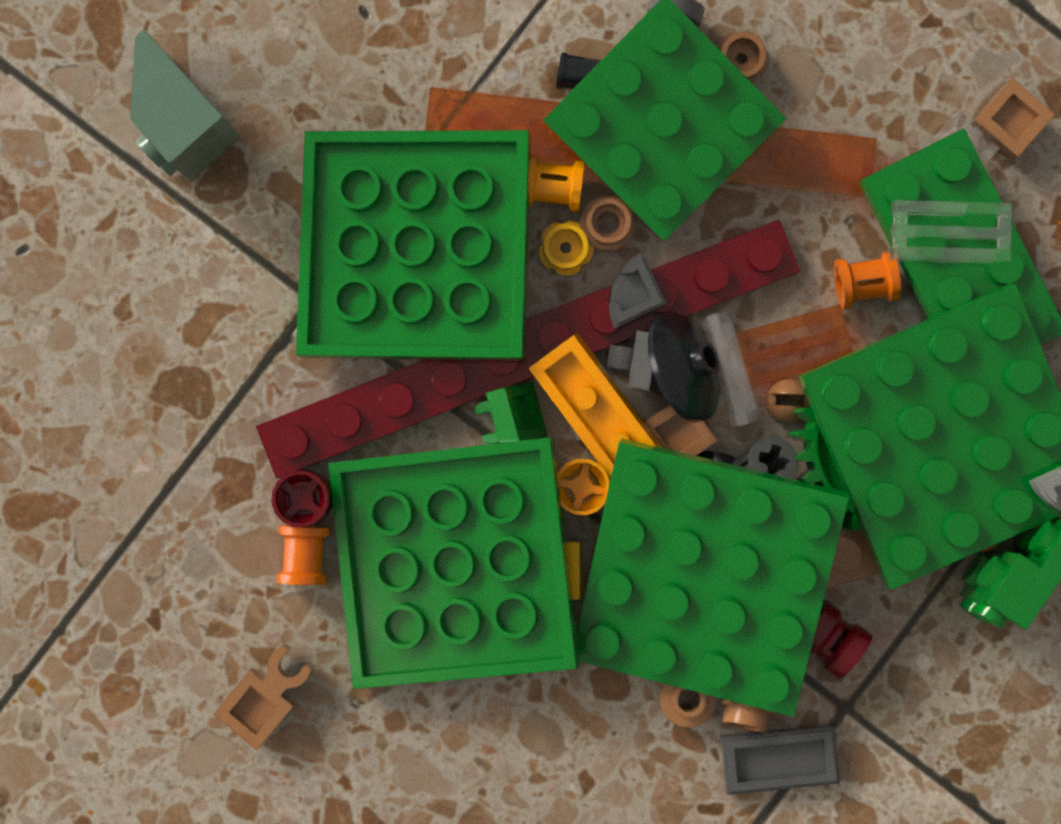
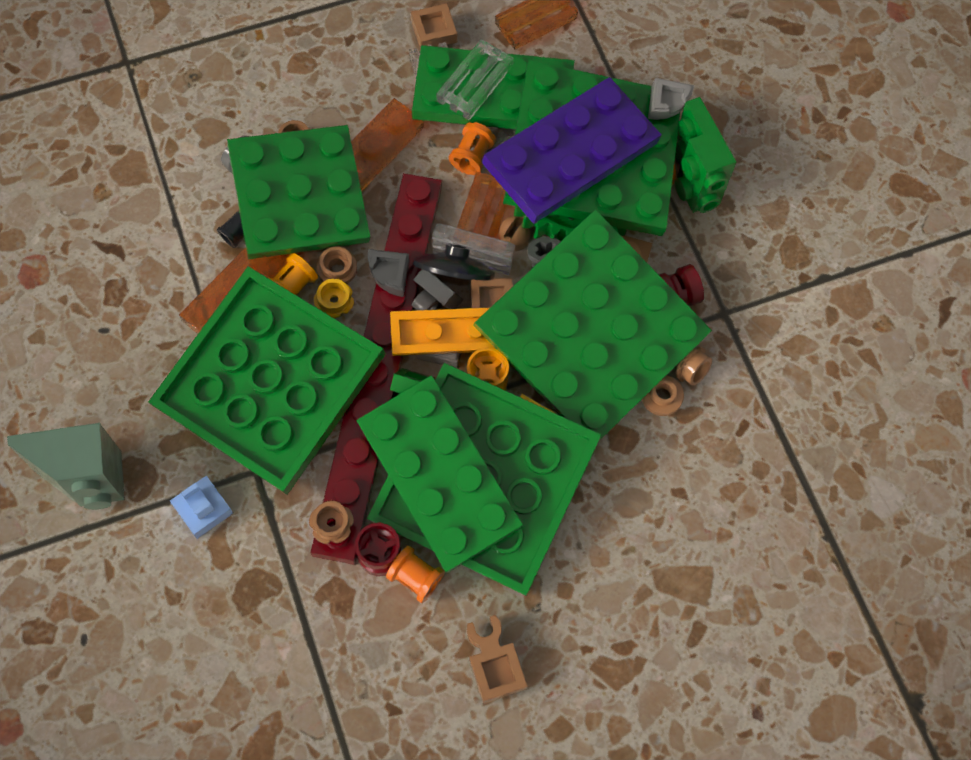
camera: 60 degrees left, 20 degrees down
(232, 272) = (201, 507): none -> light blue tile
(278, 432) = (325, 512): none -> medium nougat plate
(420, 514) = (439, 474): none -> green plate
(779, 759) = (734, 367): dark grey tile -> none
(915, 420) = (571, 149): none -> dark purple plate

